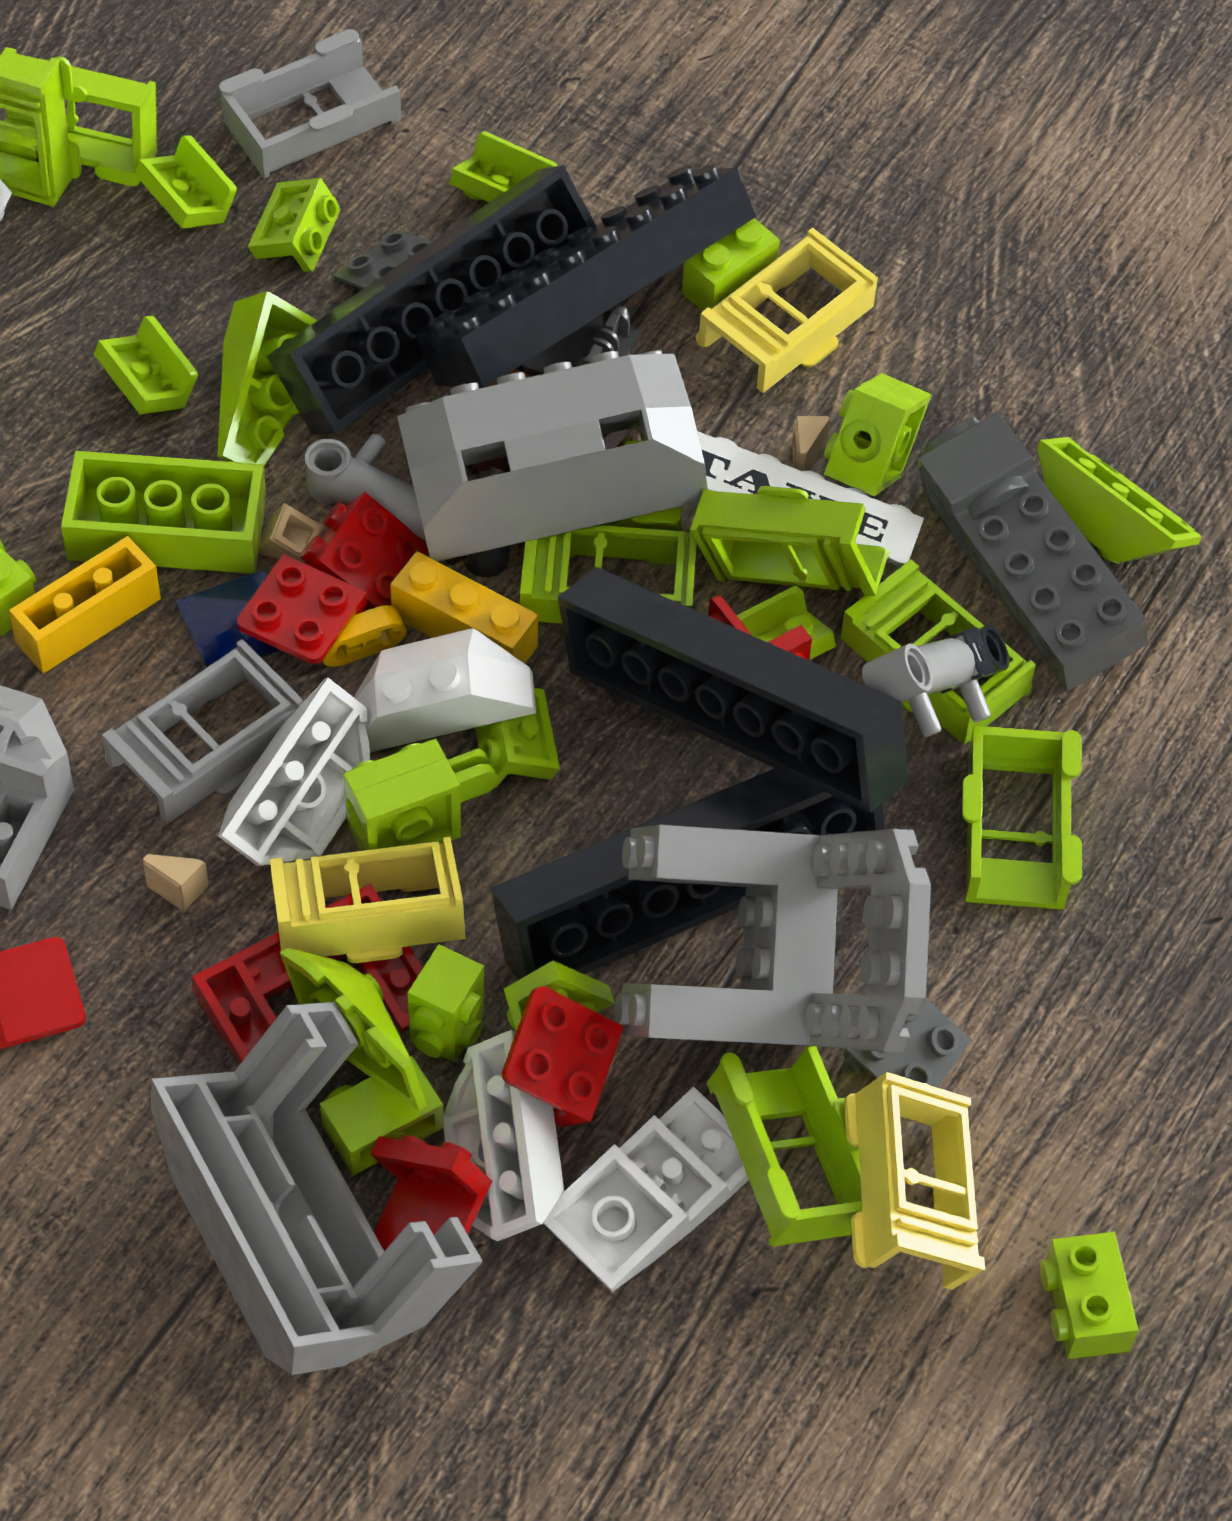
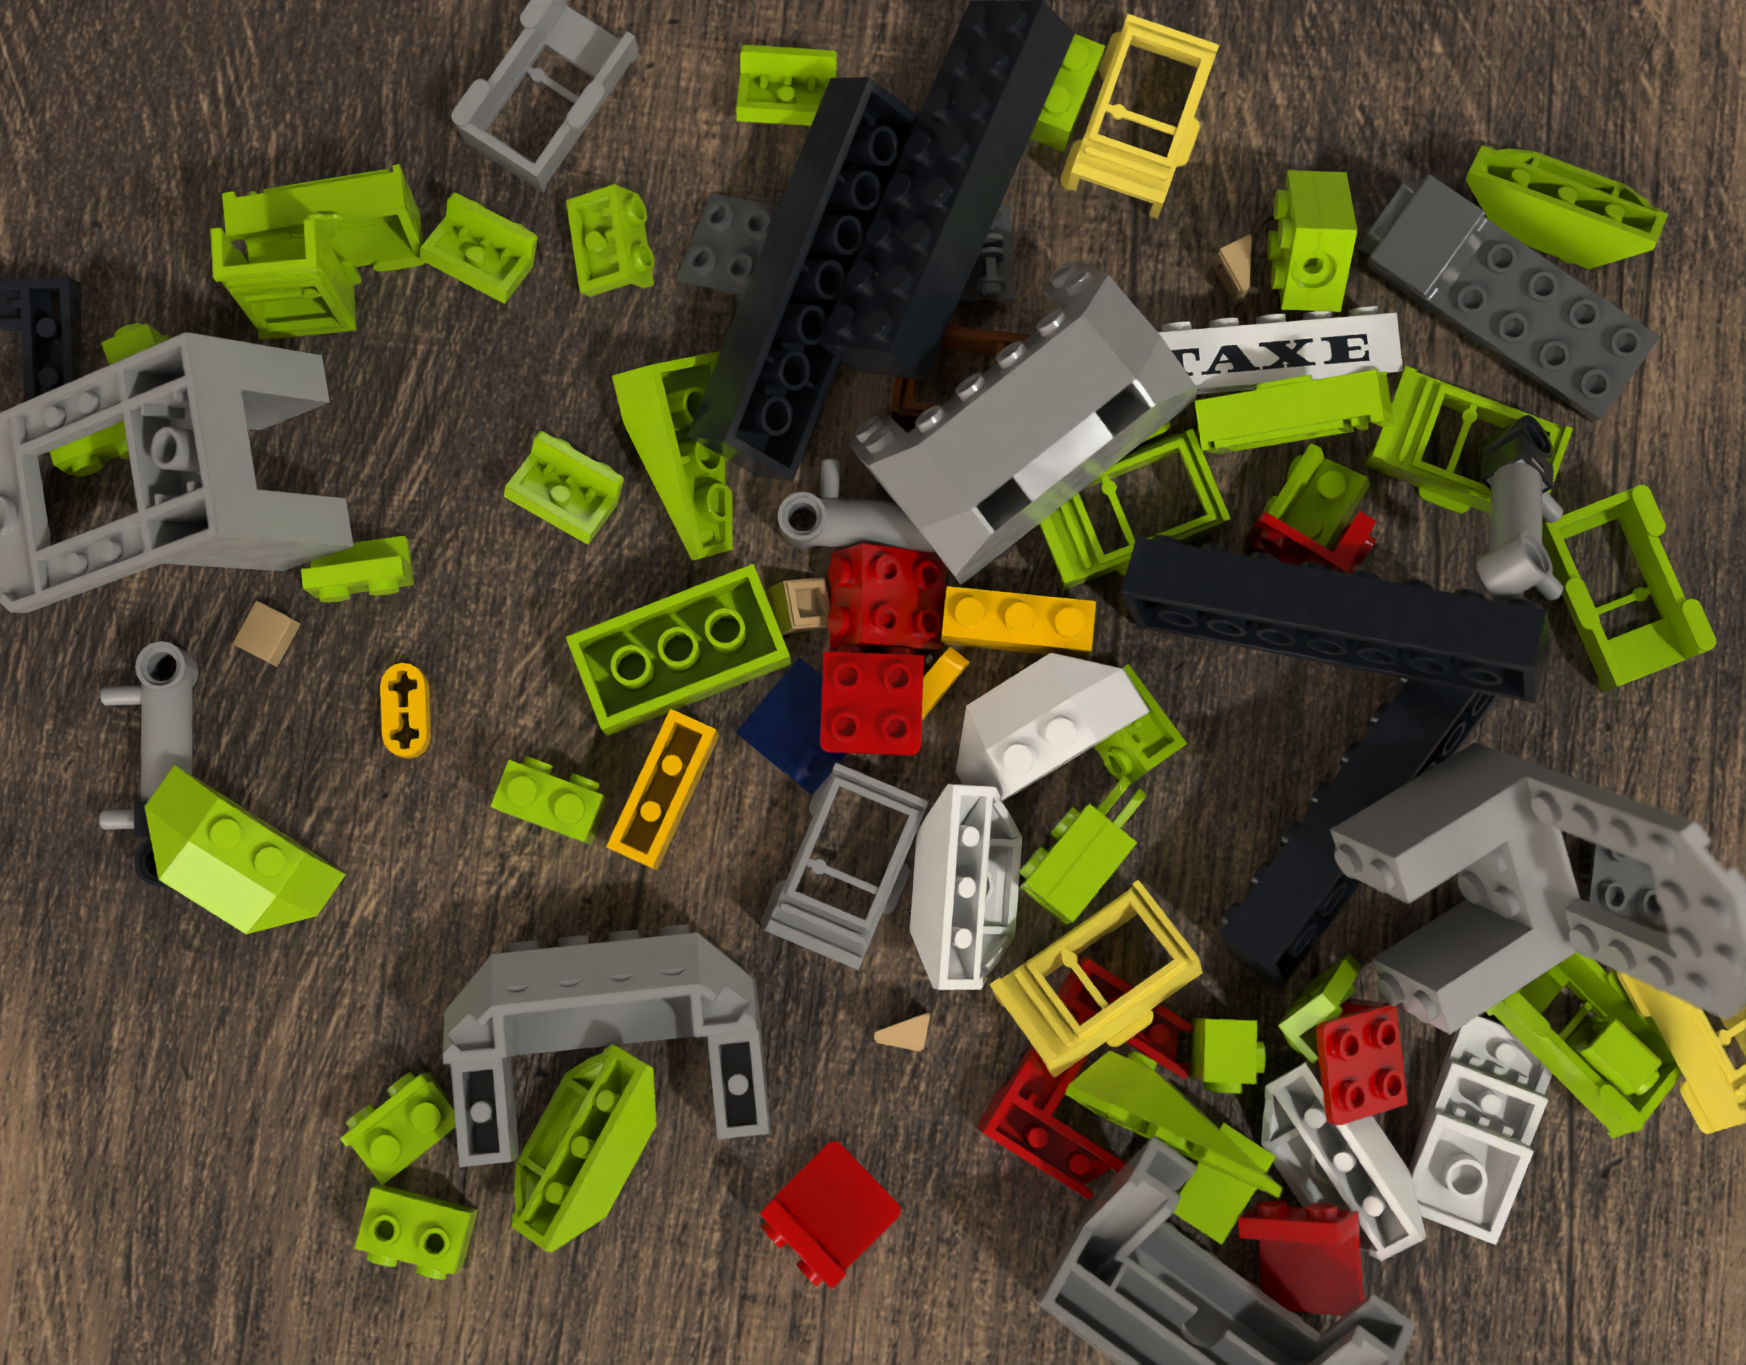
camera: 25 degrees left, 25 degrees up
(807, 1159) = (1615, 1054): none -> lime brick

